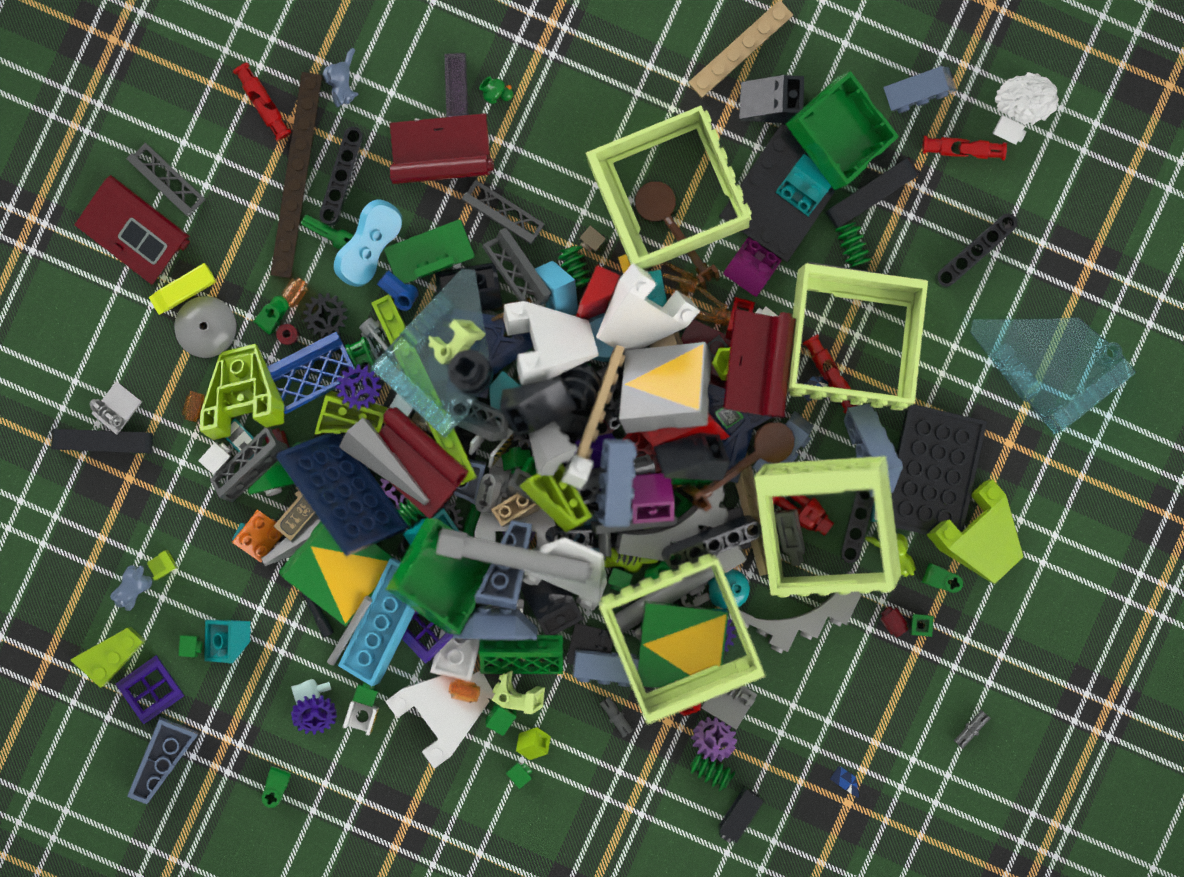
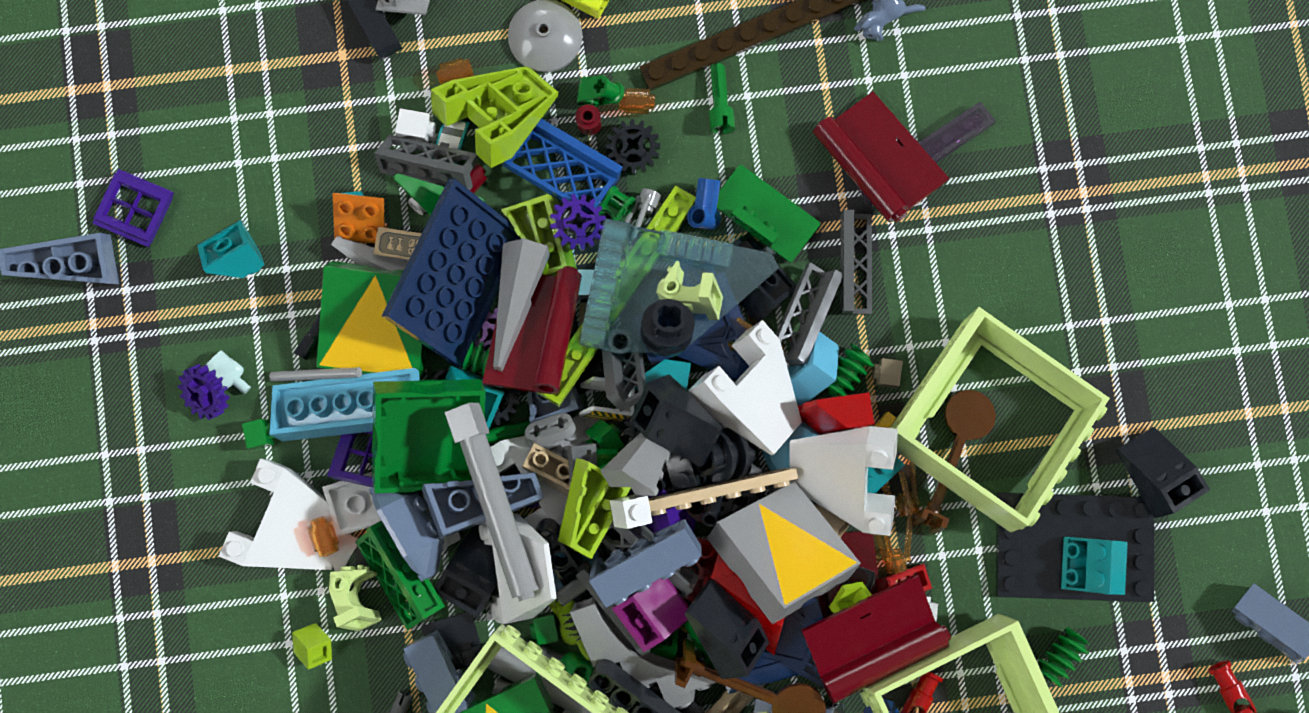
camera: 65 degrees right, 5 degrees down
(109, 656) = (139, 144): lime wedge -> none
(132, 585) = (227, 122): sand blue animal -> none
(162, 565) = (271, 141): lime panel -> none
(189, 646) = (201, 219): green plate -> none
(276, 783) = (106, 398): green piece -> none
(340, 165) = (795, 66): black beam -> none
(351, 719) = (224, 435): white piece -> none
(376, 229) = (755, 143): medium azure plate -> none
(495, 88) = (978, 174): green animal -> none
(500, 719) = (315, 594): green panel -> none
(520, 774) = (269, 652): green plate -> none
(728, 417) = (794, 639): slope -> none
(740, 49) = (1187, 404): tan plate -> none
(752, 266) = (968, 562): magenta slope -> none
(842, 130) = (1182, 568): green tile -> none
(872, 193) = (1131, 643): black beam -> none

